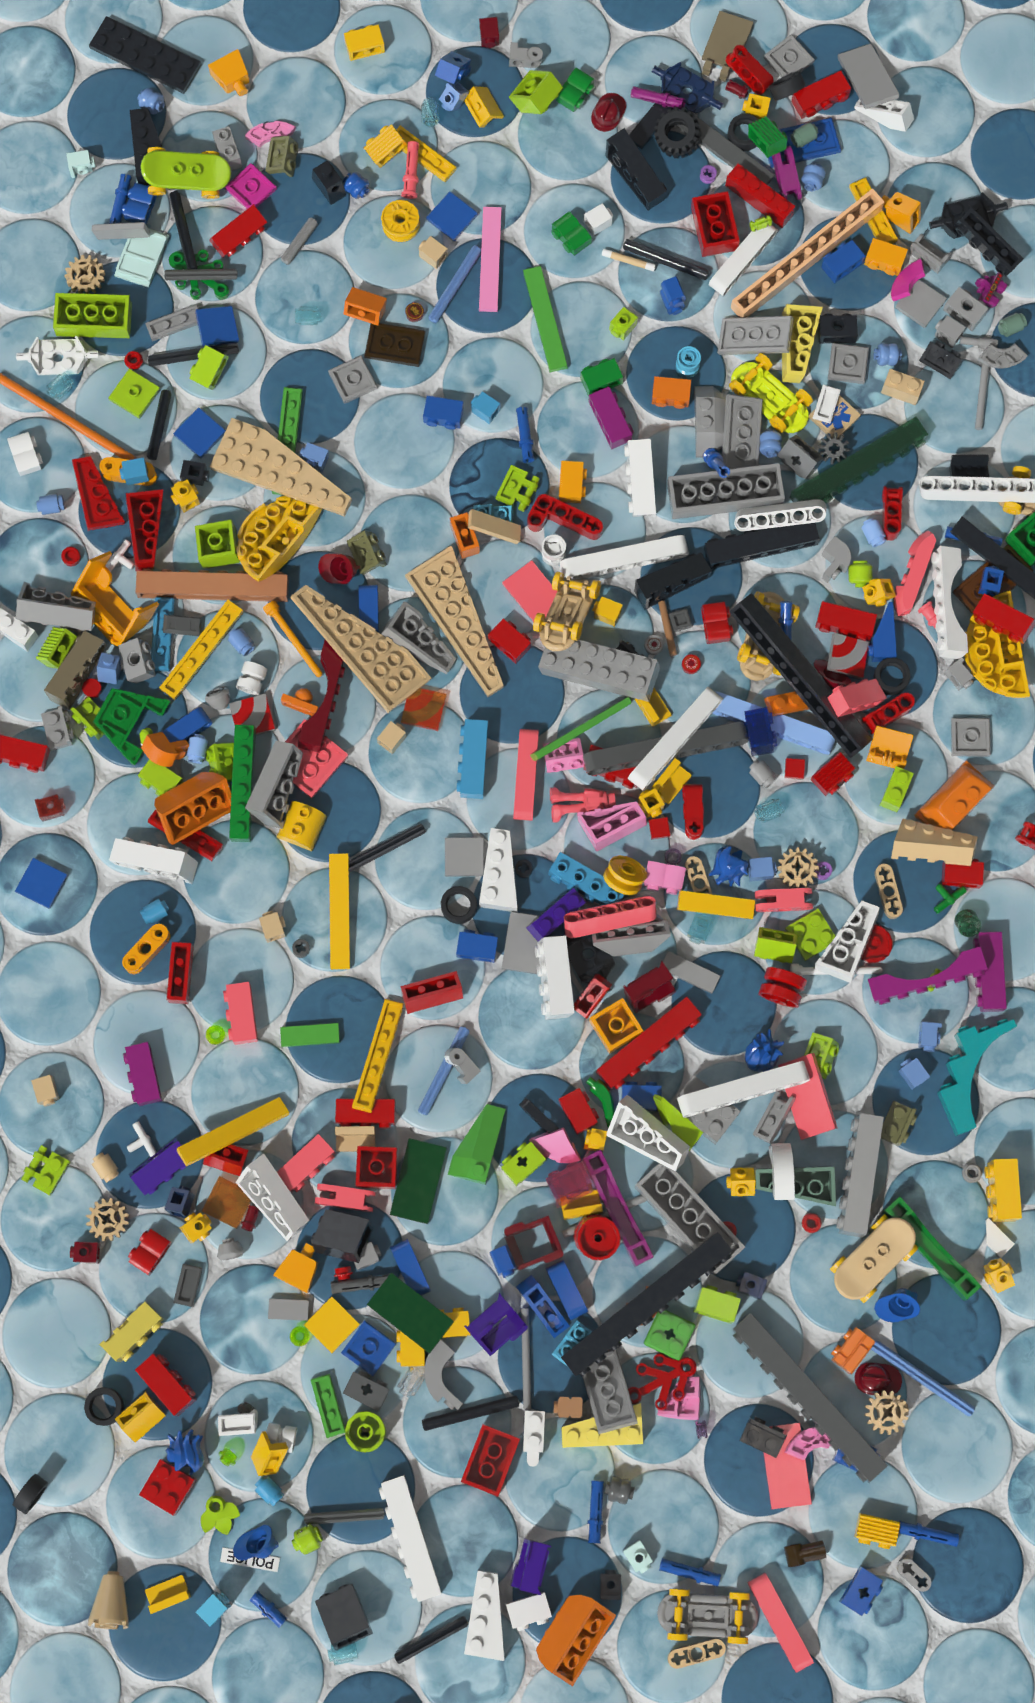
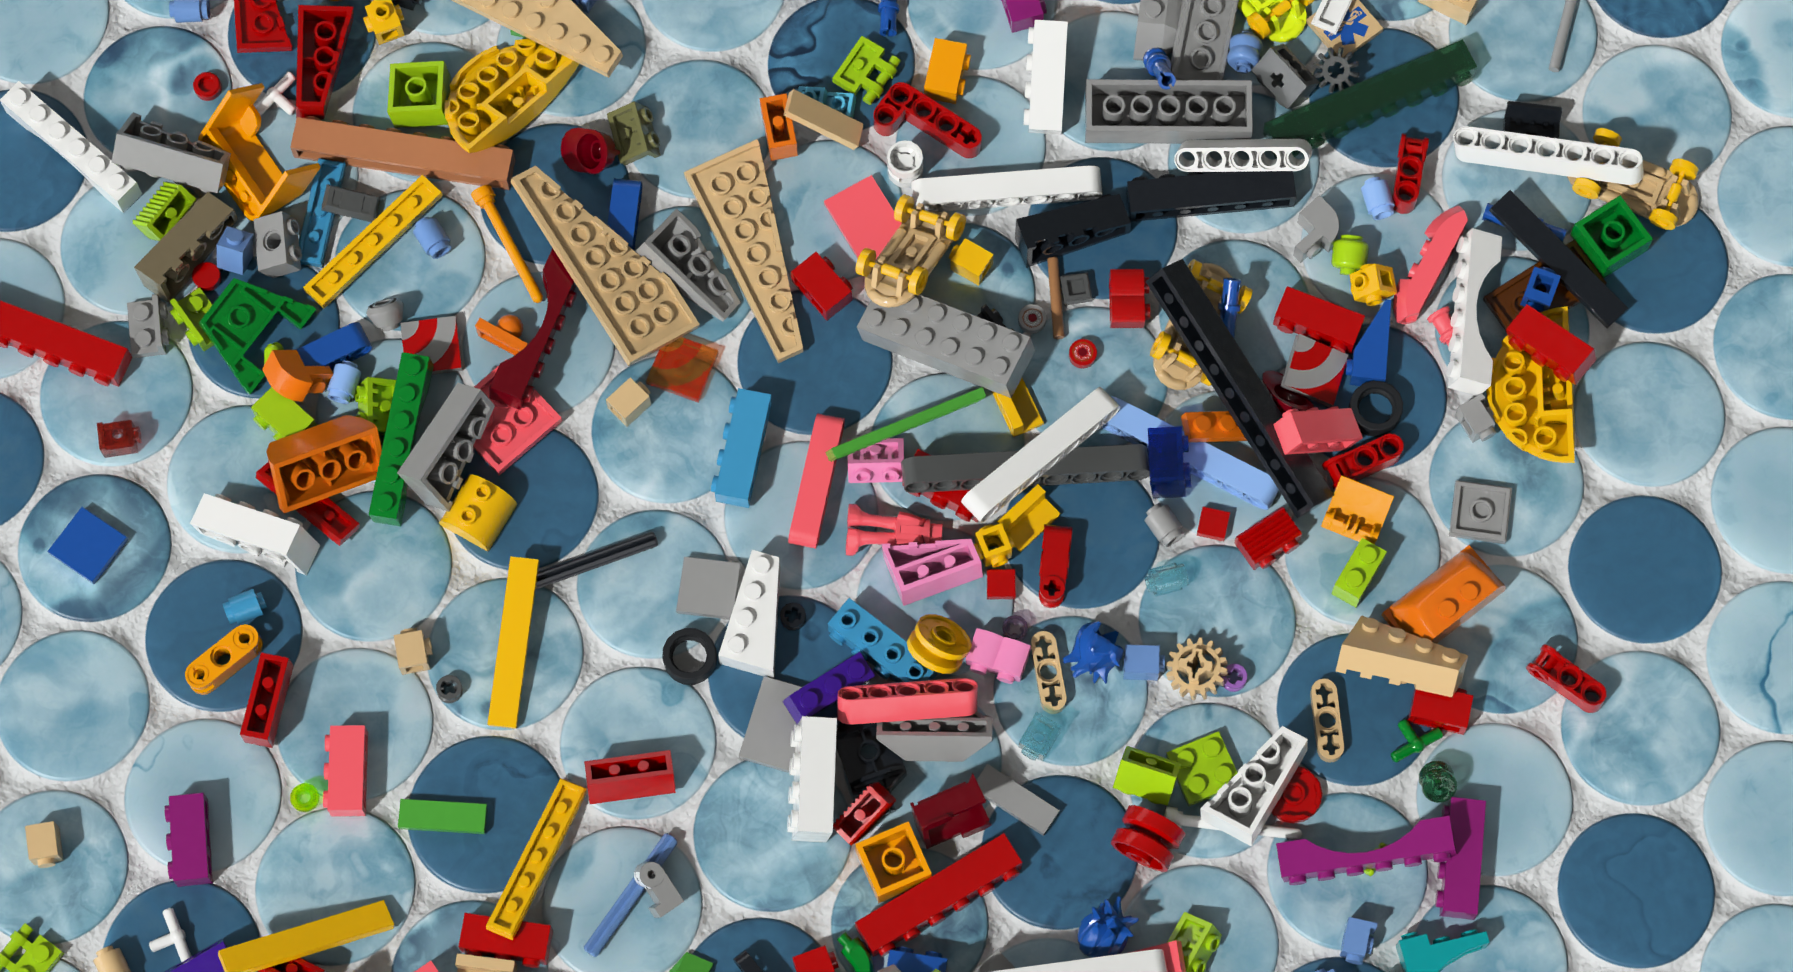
camera: 10 degrees right, 5 degrees down
(252, 677) = (437, 293): white wheel -> none
(477, 946) = (707, 719): blue brick -> none
(716, 905) = (1067, 705): yellow tile -> none
(783, 900) = (1168, 712): coral piece -> none

